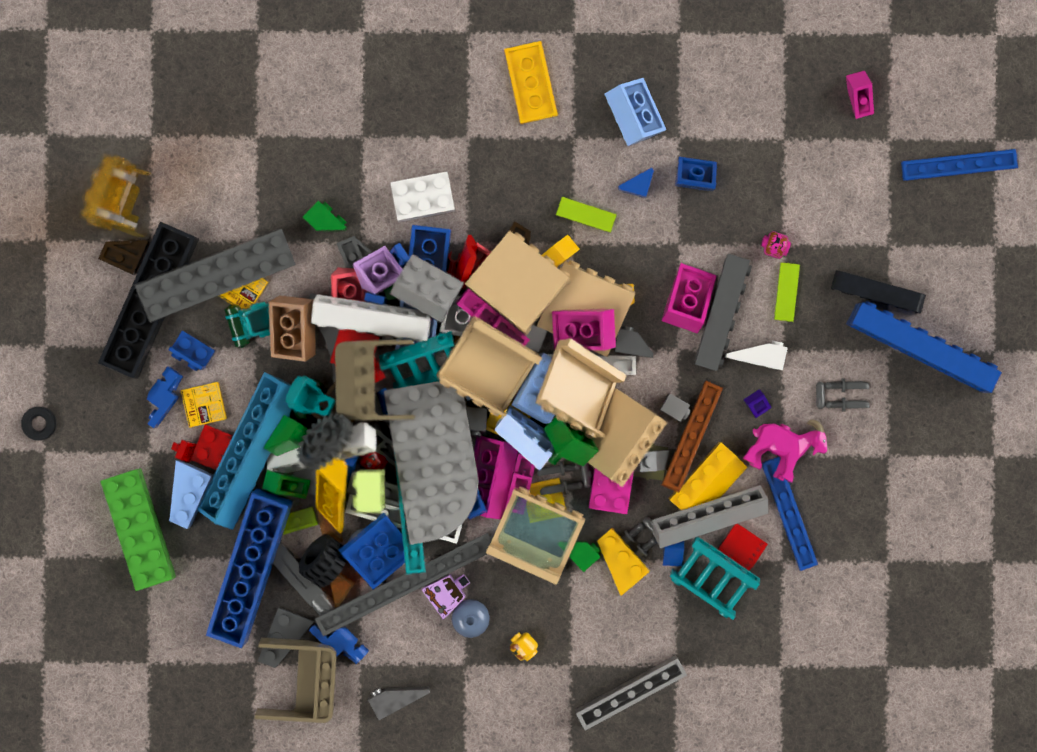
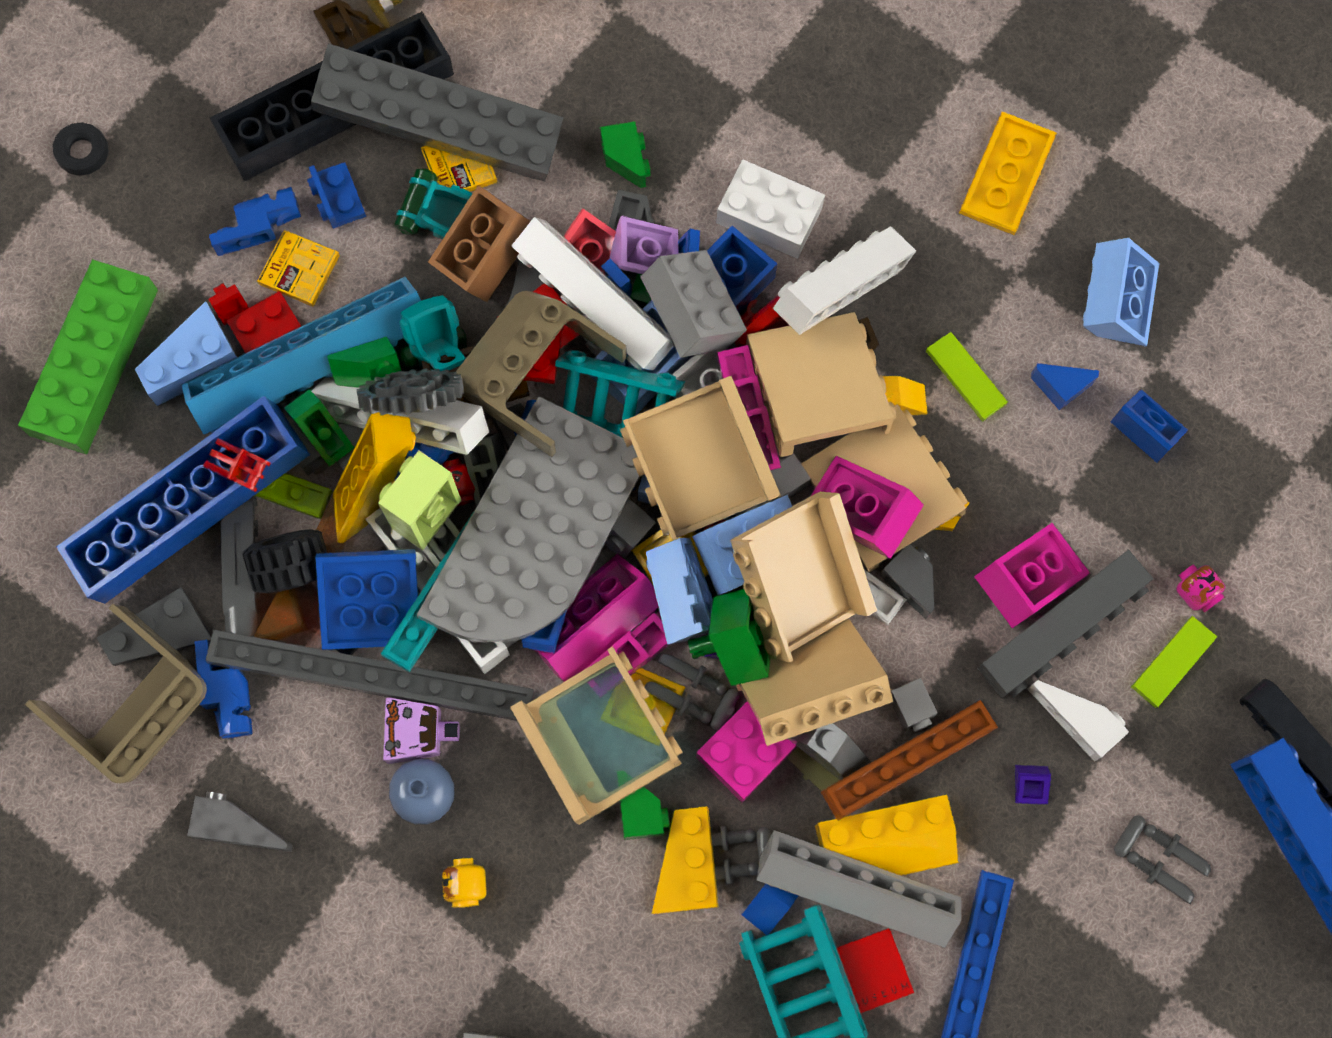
camera: 30 degrees right, 15 degrees down
(268, 537) = (239, 466): none -> red arm
(492, 216) = (843, 279): none -> white brick
(785, 444) = (1036, 867): dark pink animal -> none

